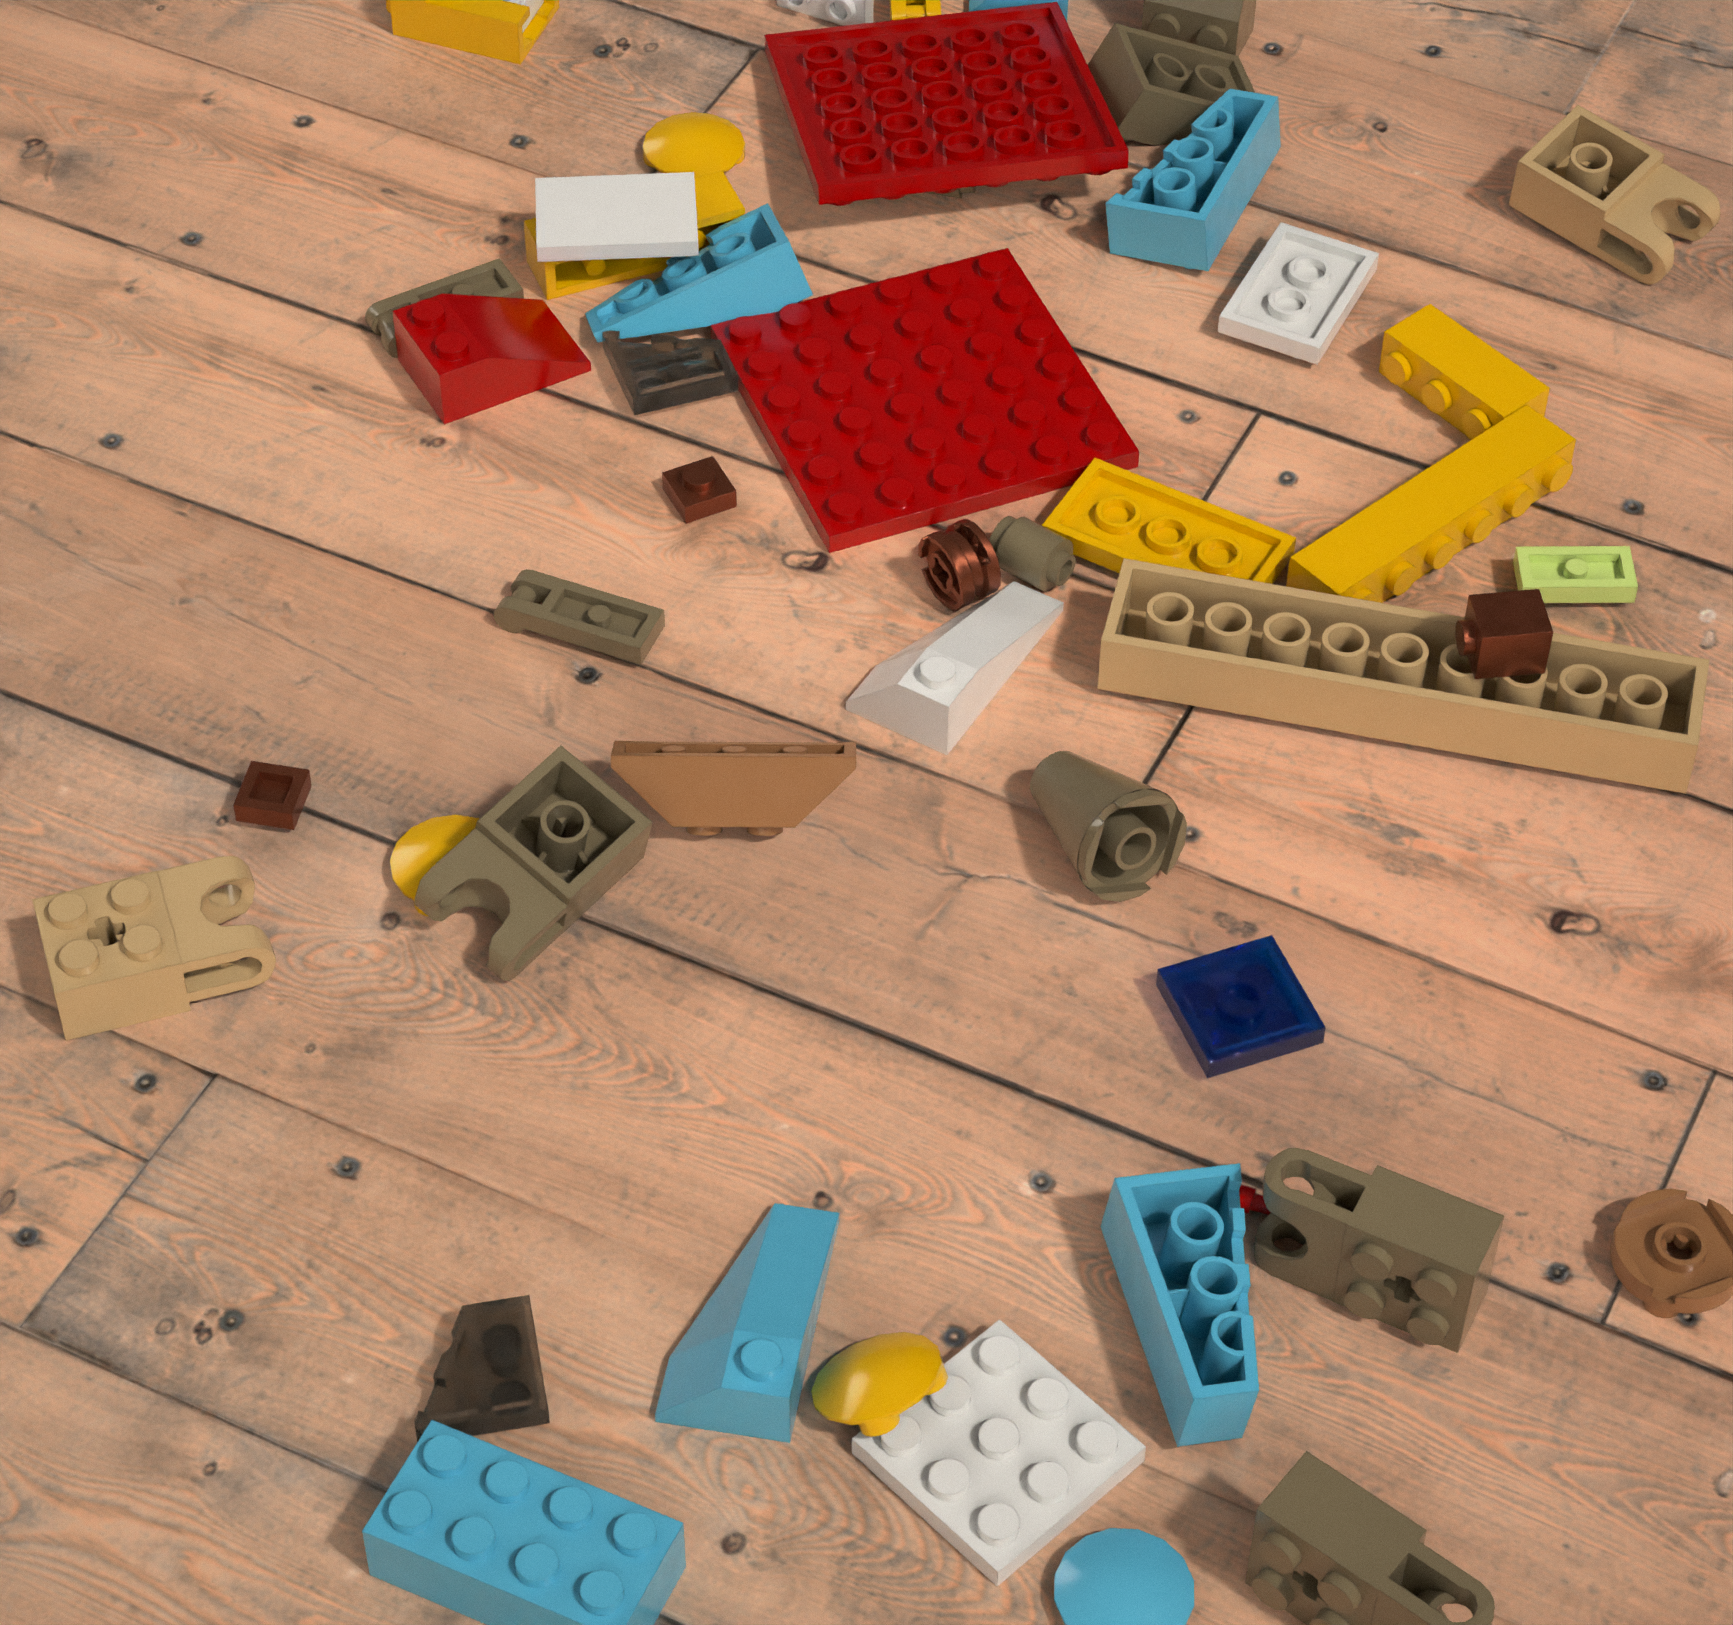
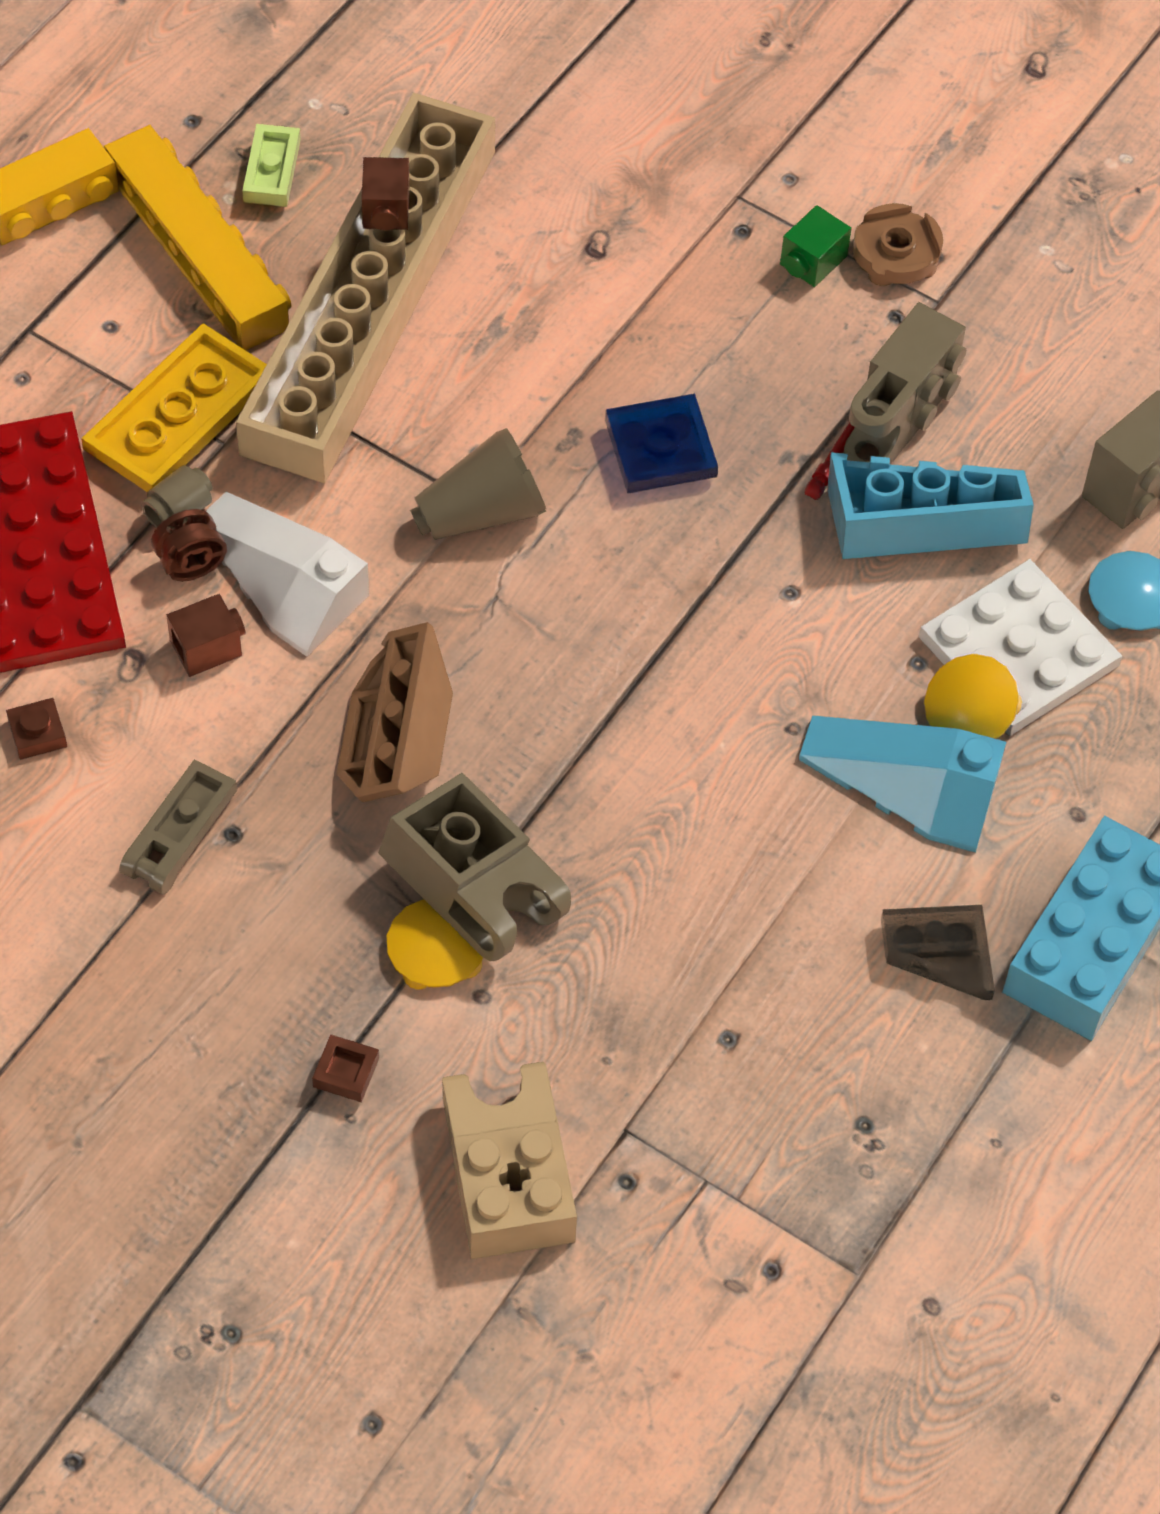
camera: 85 degrees left, 10 degrees up
(841, 600) = (205, 634): none -> copper brick
(1632, 1145) = (815, 246): none -> green brick

